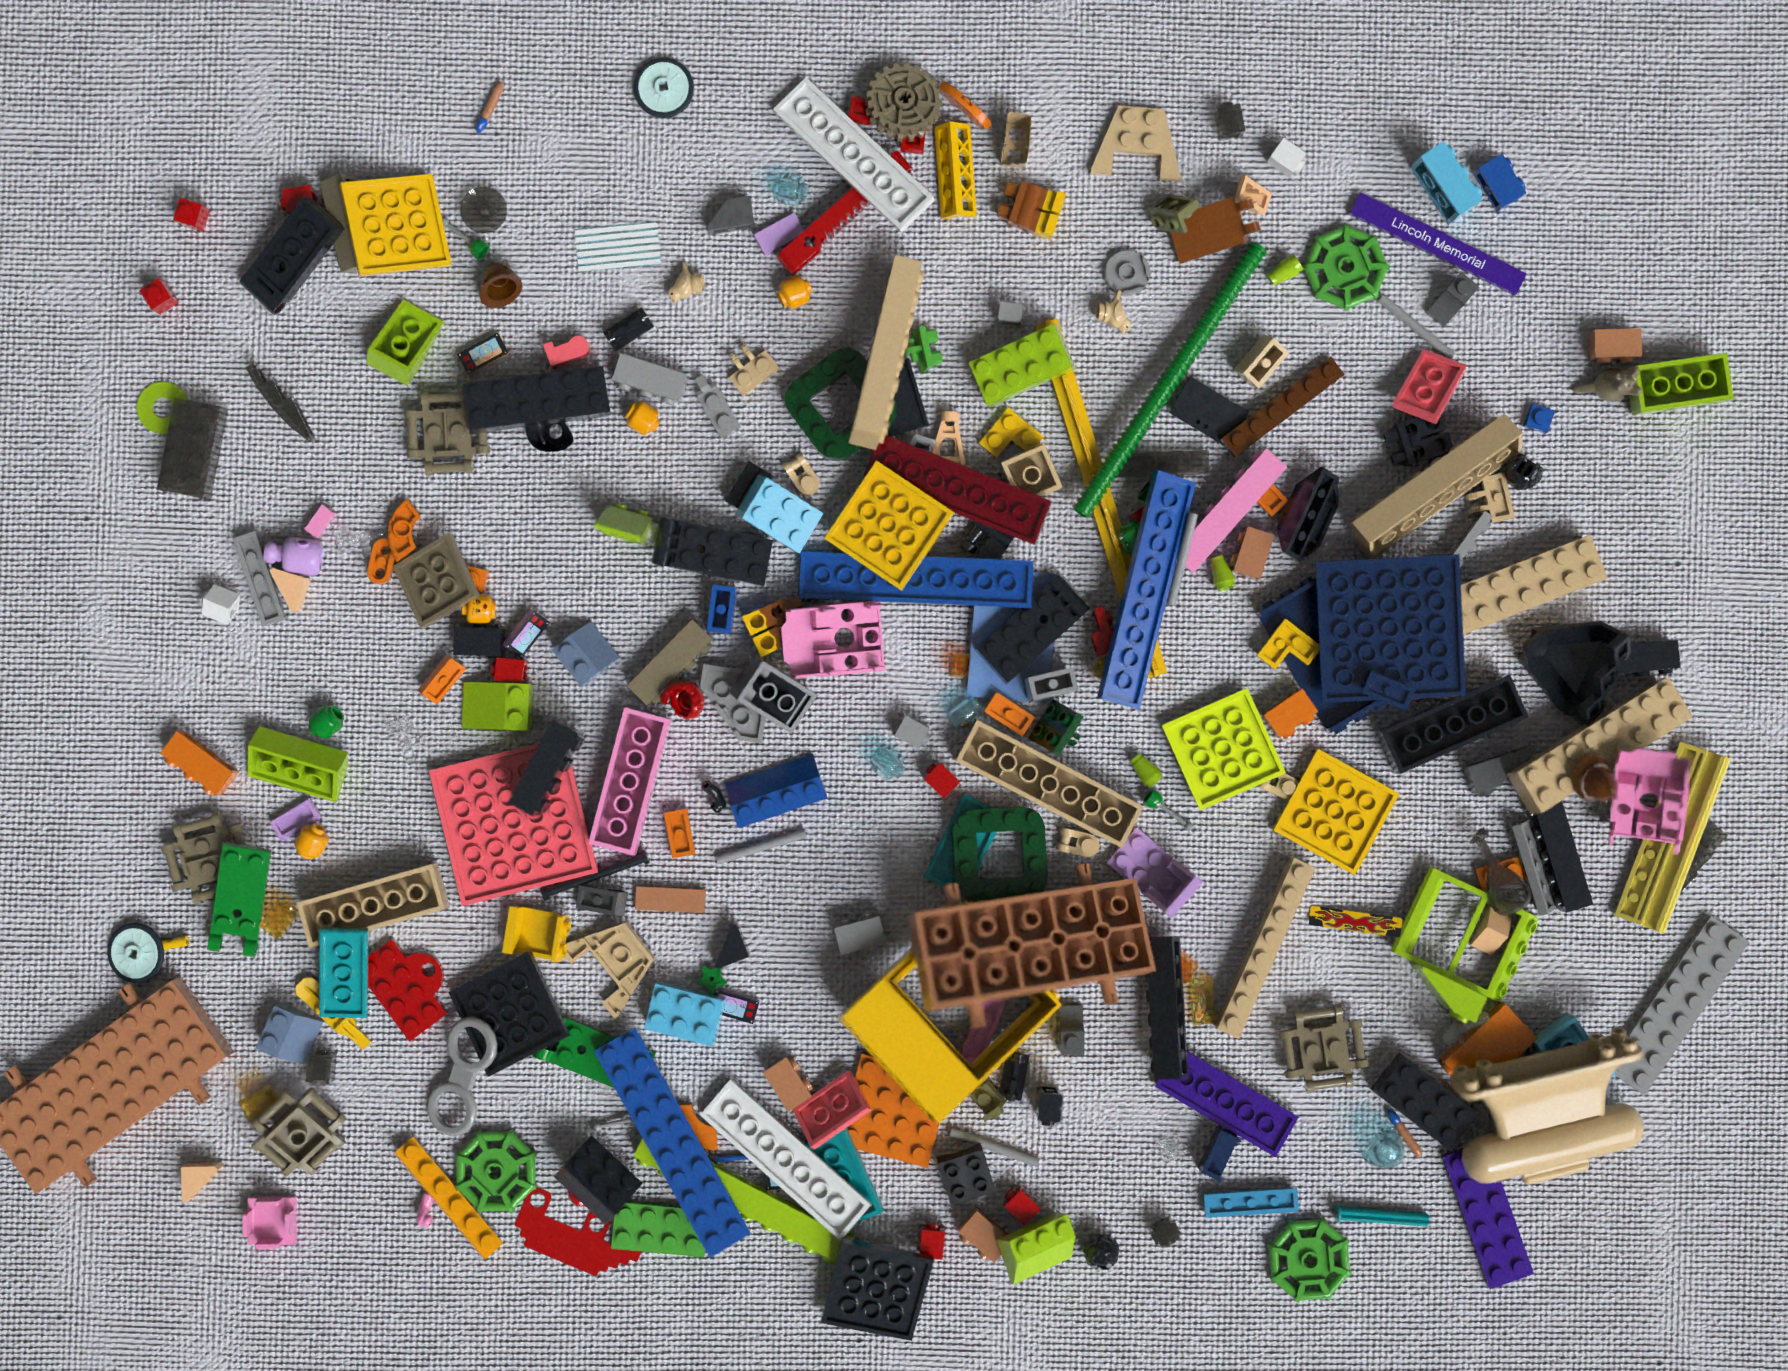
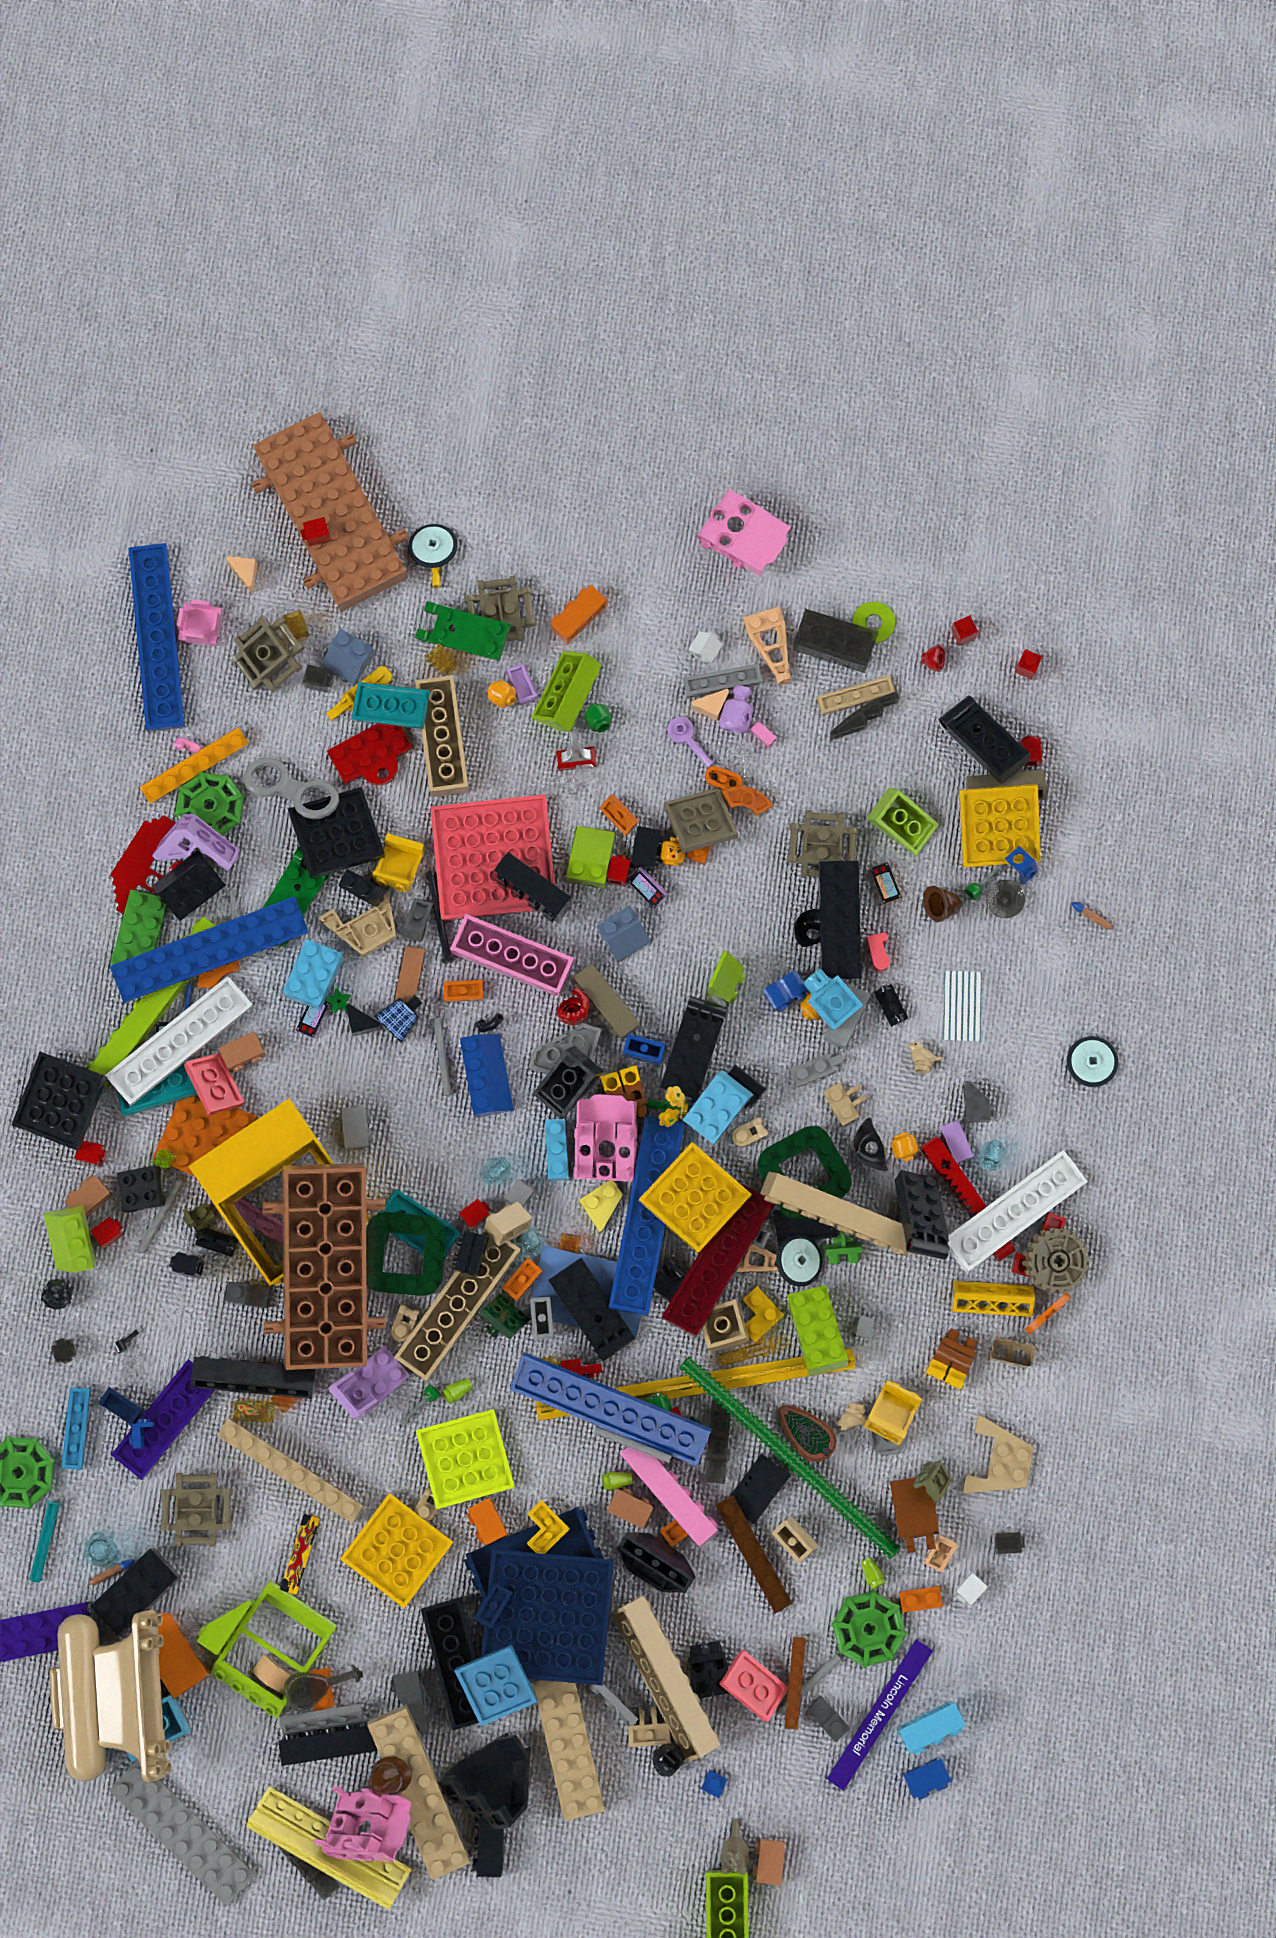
camera: 100 degrees right, 10 degrees down
(84, 560) = (752, 546): none -> bright pink piece
(136, 1098) = (315, 531): none -> red brick
(180, 538) = (764, 622): none -> light nougat plate
(198, 328) = (934, 658): none -> red brick
(257, 418) = (854, 695): none -> tan tile
(294, 1270) = (156, 637): none -> blue plate
(328, 619) = (681, 731): none -> lavender piece
(375, 742) = (575, 754): none -> piece
(444, 188) = (1027, 868): none -> blue bracket
(535, 1175) = (192, 833): none -> lavender bracket
(573, 972) = (362, 888): none -> black brick
(629, 454) = (785, 990): none -> blue brick
(632, 396) = (831, 998): none -> medium azure plate
(721, 902) = (400, 1017): none -> black torso
(779, 561) = (677, 1100): none -> yellow plant
(813, 323) = (865, 1134): none -> black piece
(853, 695) = (557, 1150): none -> medium azure brick
(875, 258) = (922, 1215): none -> black hinge
(908, 635) = (602, 1203): none -> light yellow wing
(923, 1154) = (163, 1159): none -> clear neon green plate
(929, 400) = (787, 1258): none -> light aqua wheel
(950, 739) = (507, 1223): none -> tan brick
(991, 776) = (470, 1254): none -> black brick
(1058, 448) = (741, 1354): none -> clear yellow piece
(1102, 268) = (893, 1412): none -> yellow panel
(1140, 362) = (807, 1433): none -> shield
(1149, 1167) = (120, 1345): none -> black hand
(1250, 1130) = (136, 1438): none -> blue bracket
(1304, 213) = (920, 1599): none -> orange plate
(1419, 341) = (795, 1683): none -> dark orange piece
(1476, 674) = (496, 1685): none -> dark azure plate

